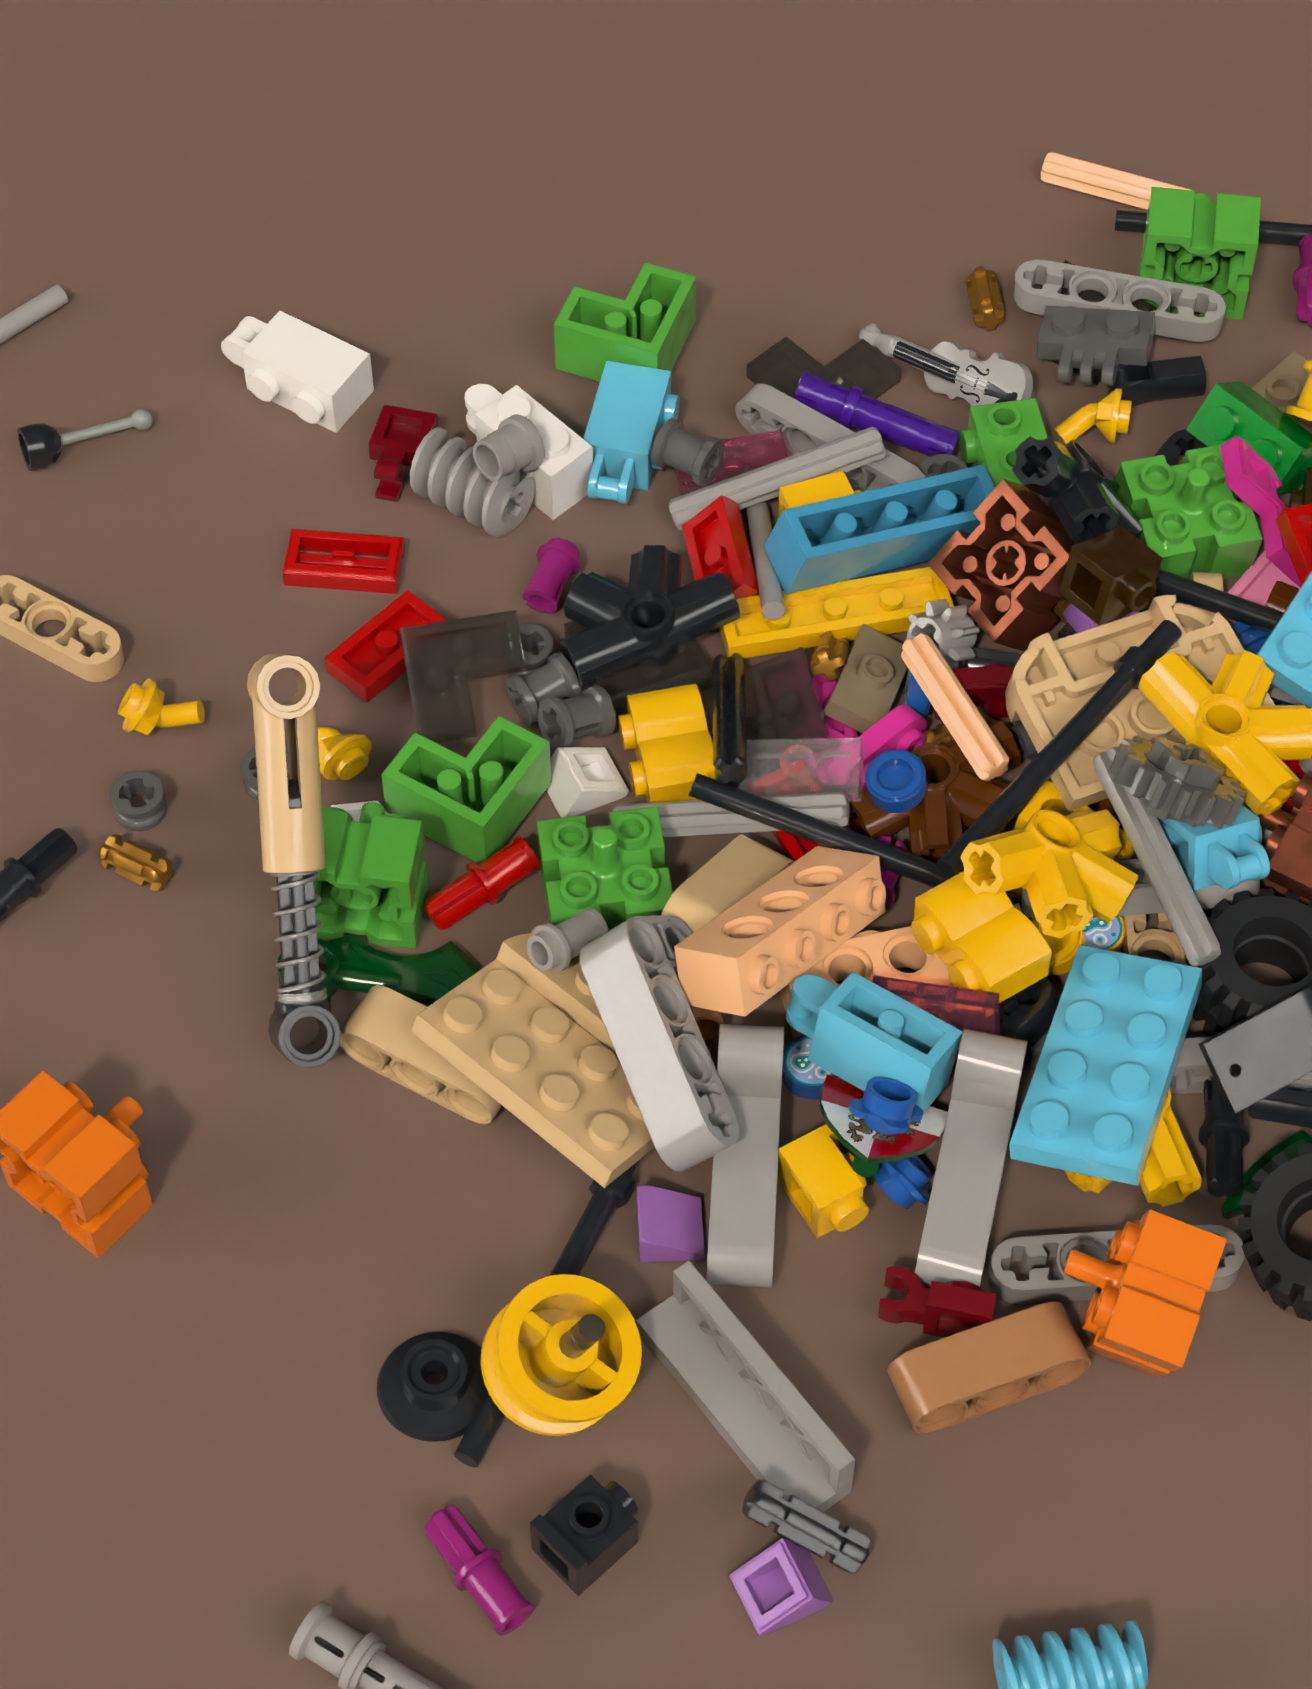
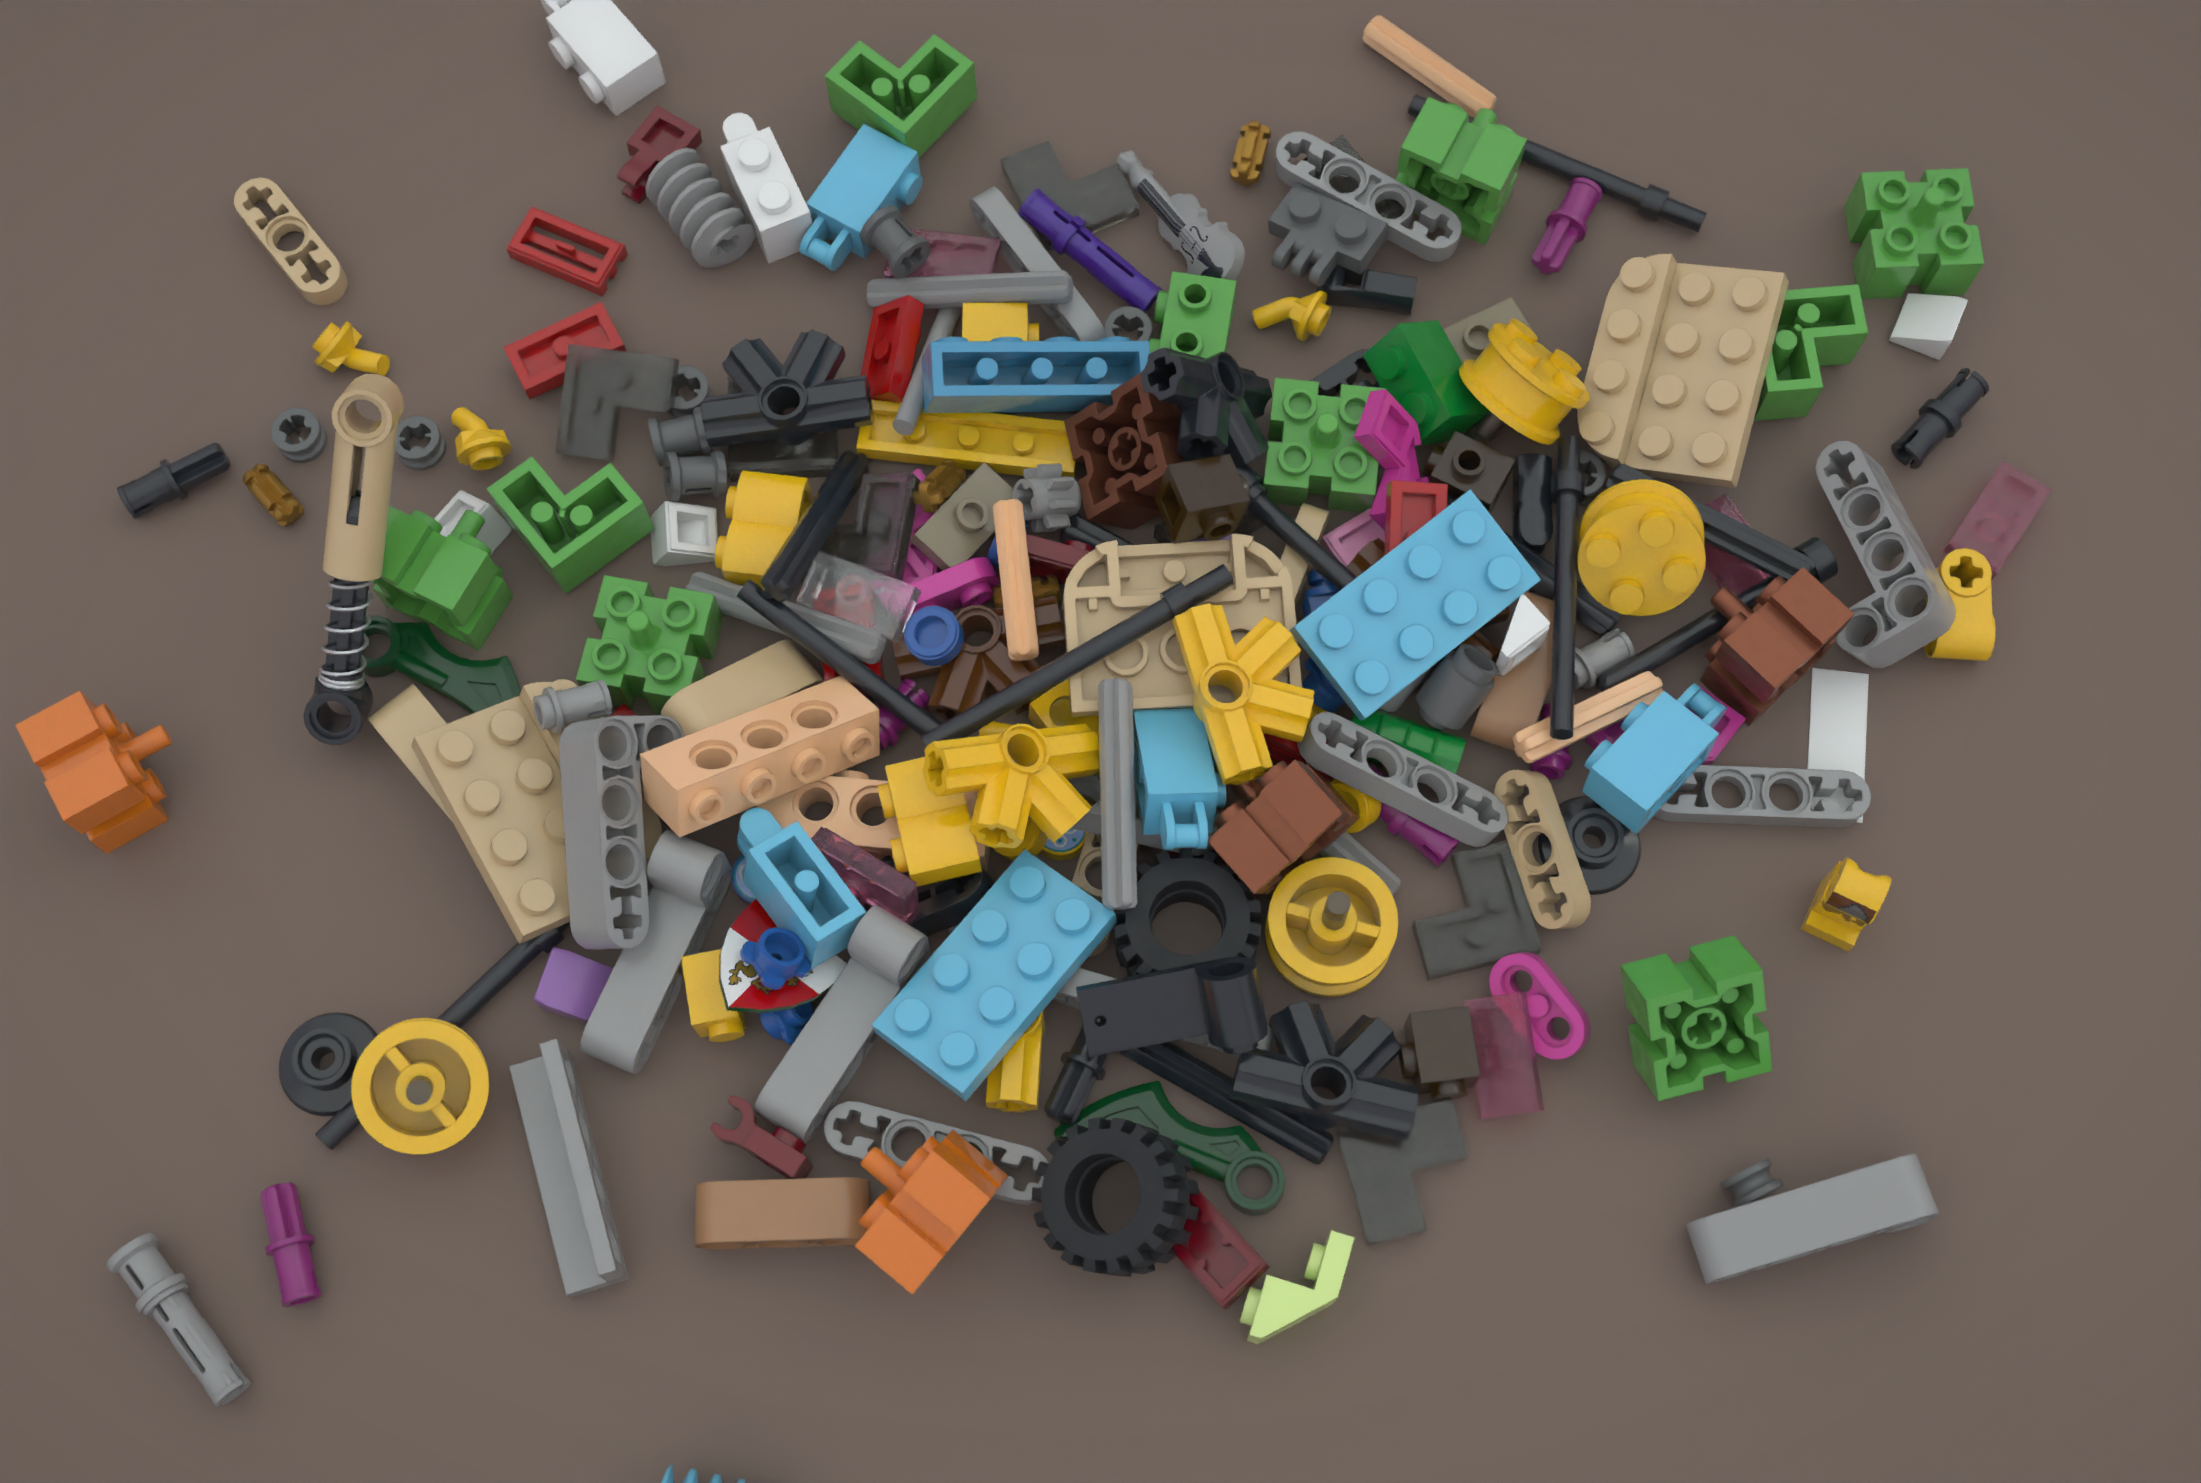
camera: 20 degrees right, 15 degrees up
(43, 444) = (352, 56): hinge -> none
(481, 883) = (547, 611): red axle -> none
(509, 448) = (726, 196): light grey piece -> none
(557, 562) = (737, 322): magenta pin -> none
(583, 1553) = (410, 1251): black brick -> none
(780, 1587) = (532, 1345): medium lavender slope -> none
(806, 1526) = (564, 1306): axle -> none
(1177, 782) = (1150, 739): dark grey gear -> none

